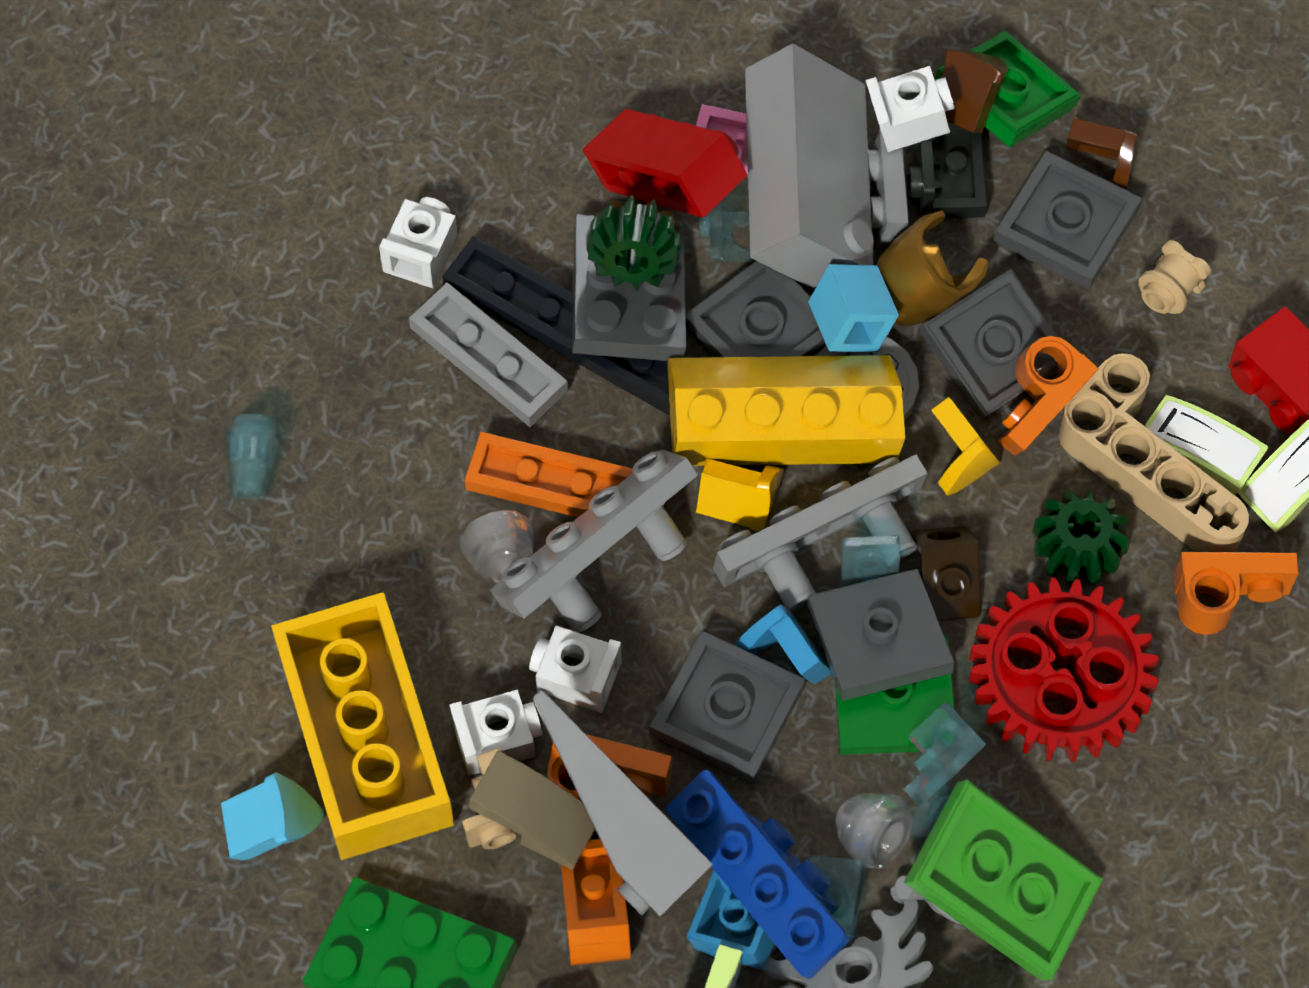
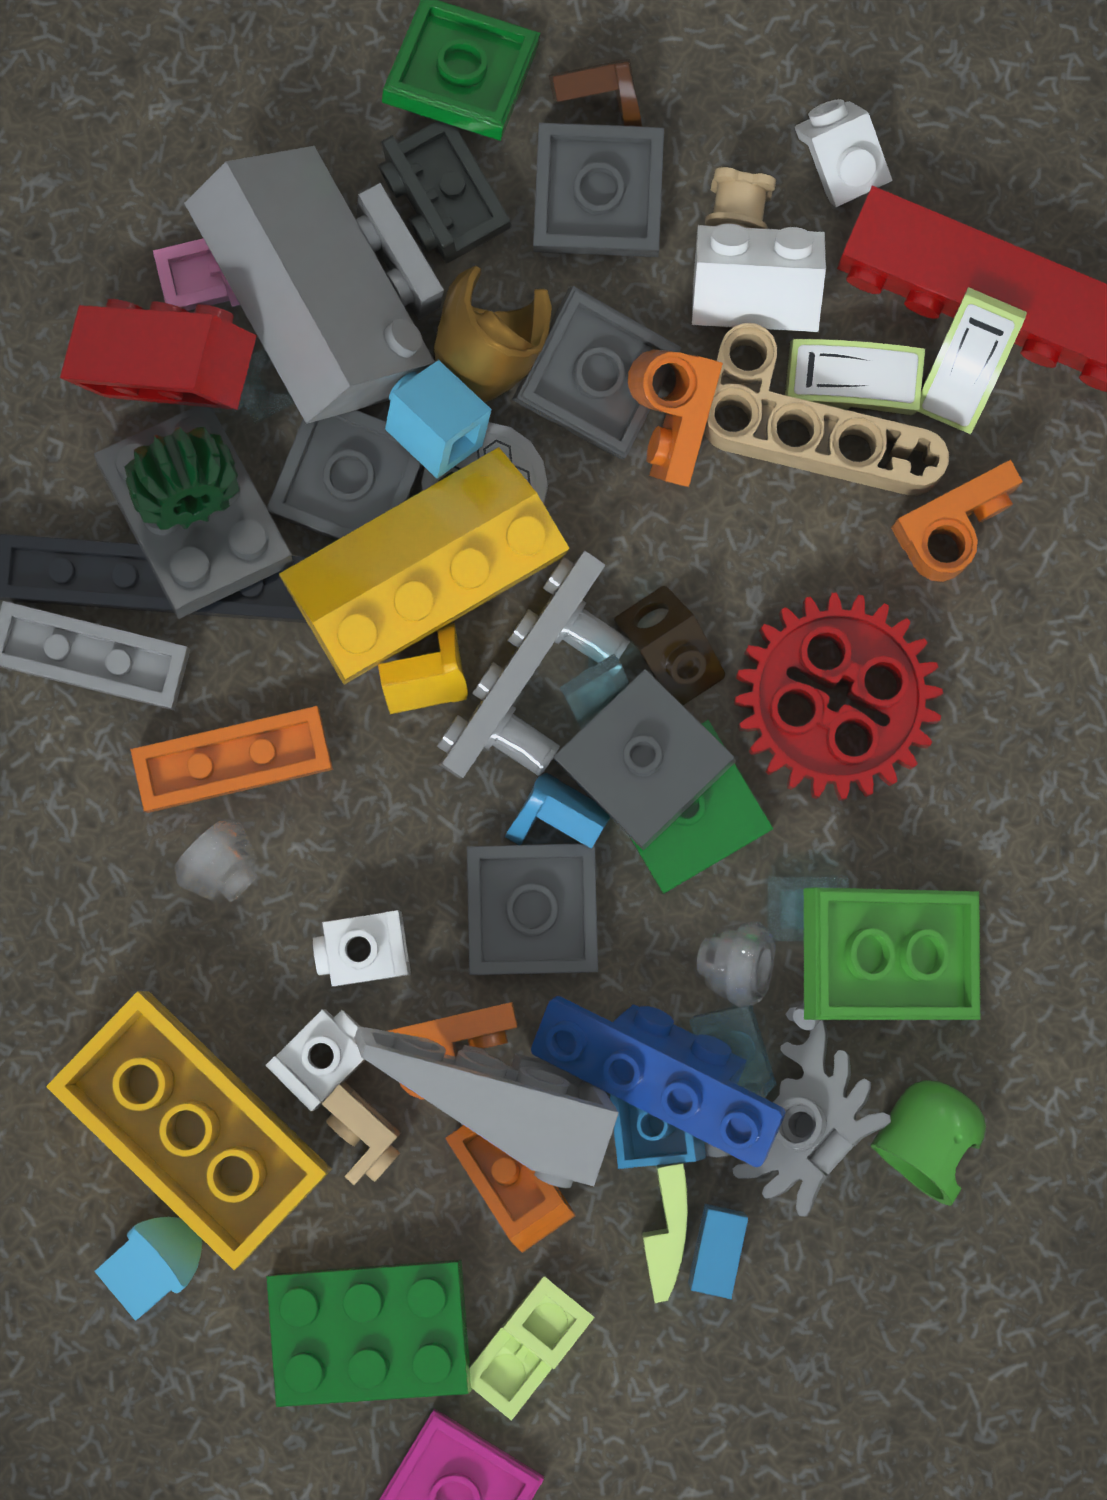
camera: 25 degrees left, 20 degrees up
(534, 807) = (405, 1135): dark tan slope -> none
(576, 544) = (308, 810): light grey plate -> none
(911, 107) = (384, 185): white brick -> none
(946, 748) = (777, 858): clear light blue bracket -> none
(973, 87) = (427, 98): reddish brown tile -> none
(976, 455) = (624, 500): yellow tile -> none
(1087, 553) = (800, 561): dark green gear -> none
(1161, 329) = (758, 277): none -> white brick
(1277, 280) = (844, 150): none -> white bracket

